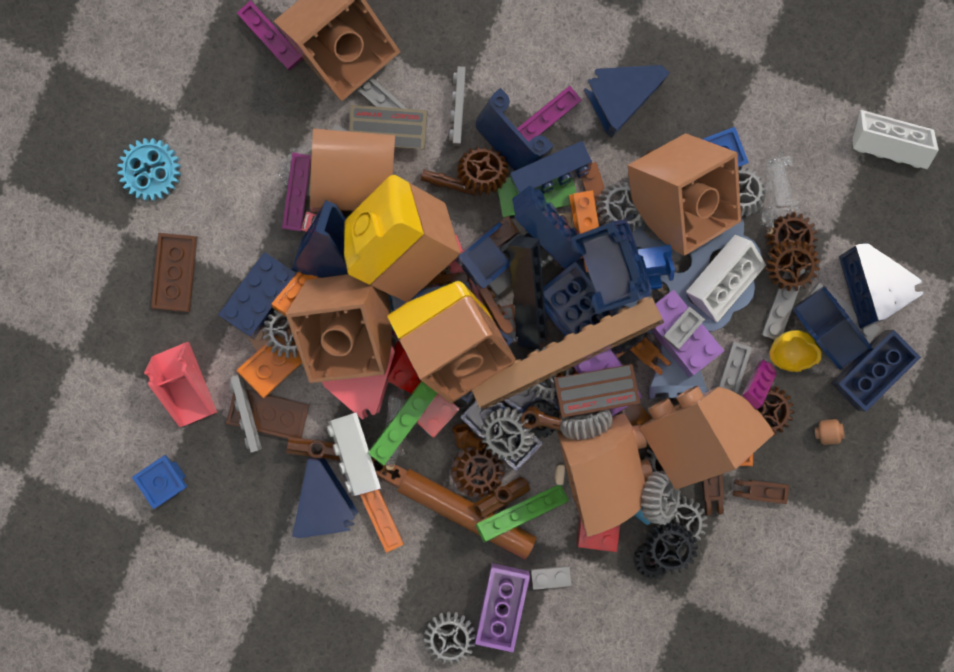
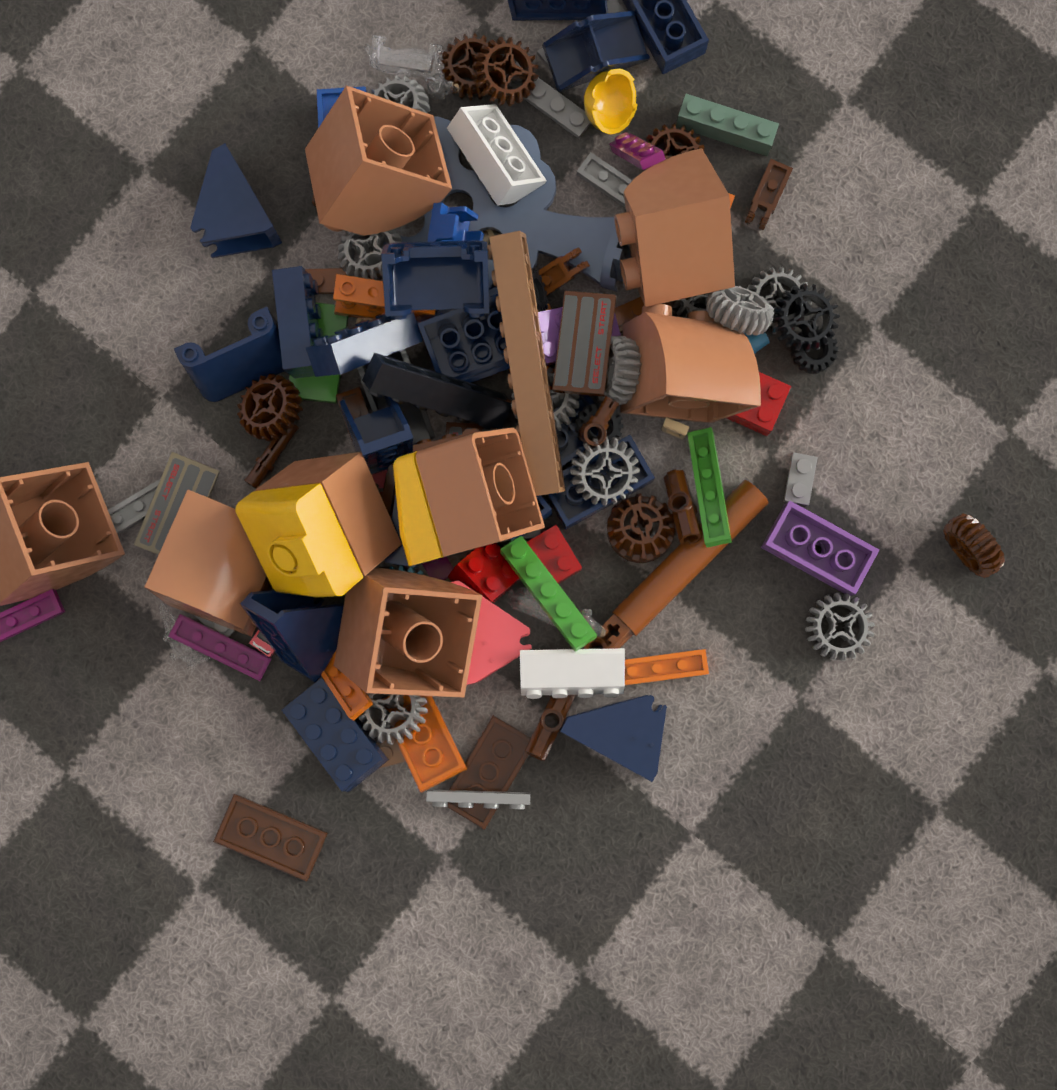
camera: 70 degrees left, 5 degrees down
(155, 185) = (105, 828): medium azure gear -> none
(160, 481) = (531, 935): blue panel -> none
(180, 385) = (417, 870): coral ladder -> none
(458, 99) = (170, 411): light grey plate -> none
(465, 438) = (595, 529): reddish brown pin -> none
(549, 113) = (226, 303): magenta plate -> none
(683, 328) = (540, 216): light grey plate -> none
(700, 346) = (552, 220): medium lavender brick -> none
(712, 491) = (750, 251): reddish brown hinge -> none
(805, 444) = (727, 124): none -> sand green brick
(830, 432) = (721, 90): nougat head -> none

